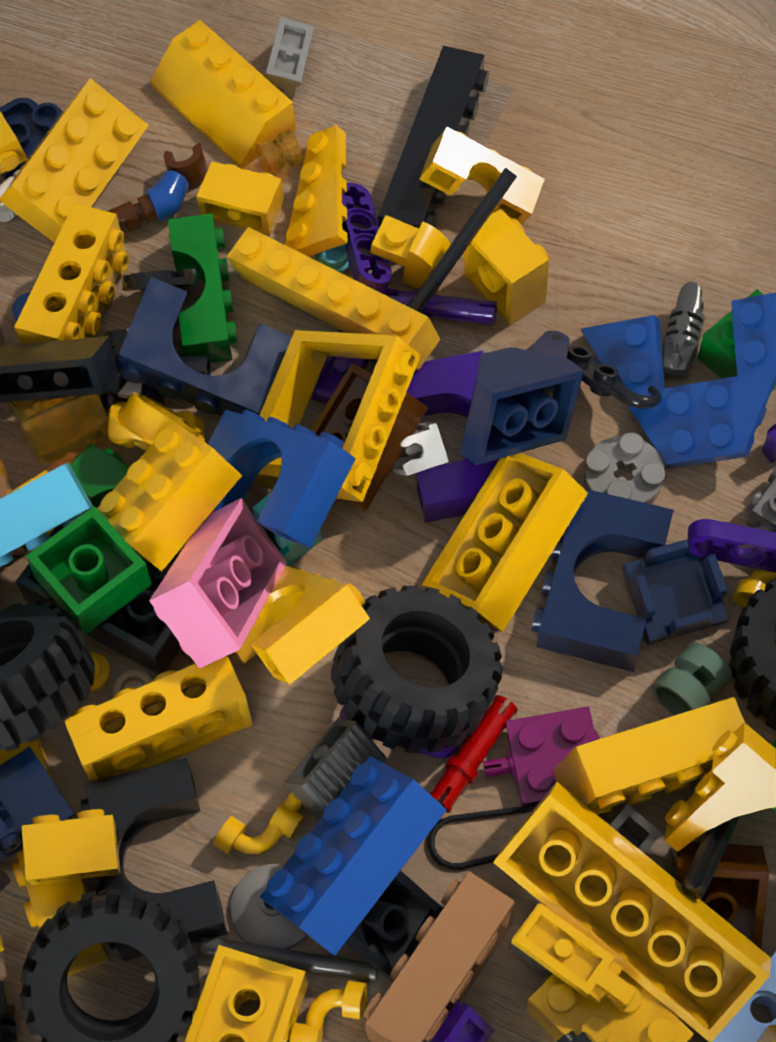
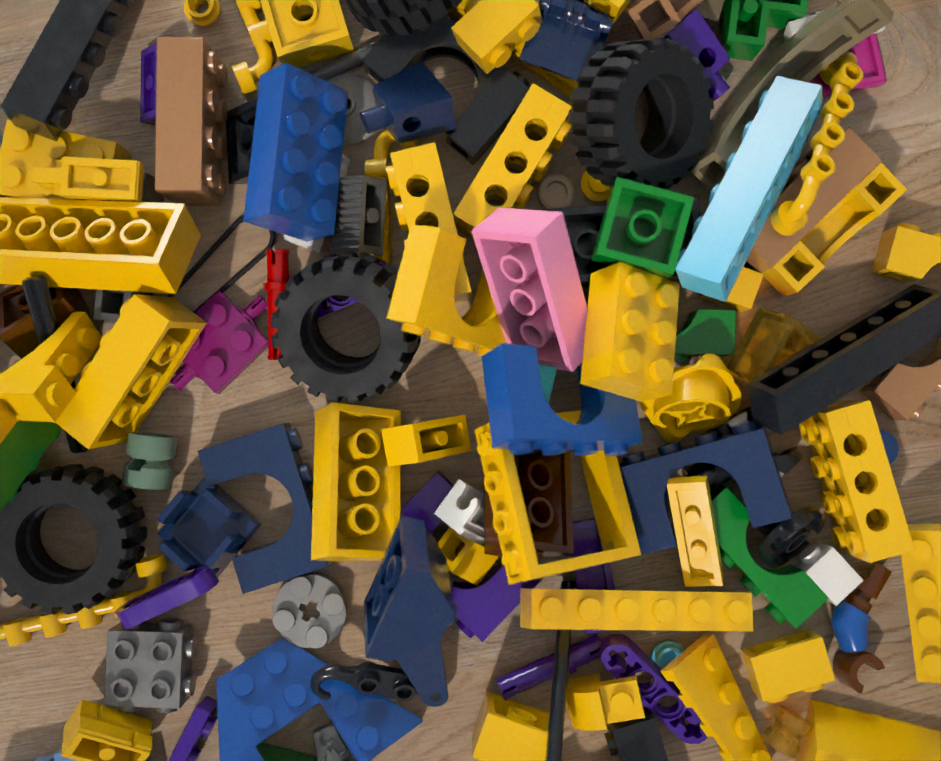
camera: 145 degrees right, 25 degrees up
(151, 242) = (829, 571): none -> white brick
(209, 840) = (410, 106): none -> dark blue torso
(235, 324) = (695, 531): none -> yellow plate
(269, 735) = (417, 171): none -> yellow brick
(414, 533) = (426, 440): none -> yellow brick
(450, 422) = (465, 557): none -> yellow brick

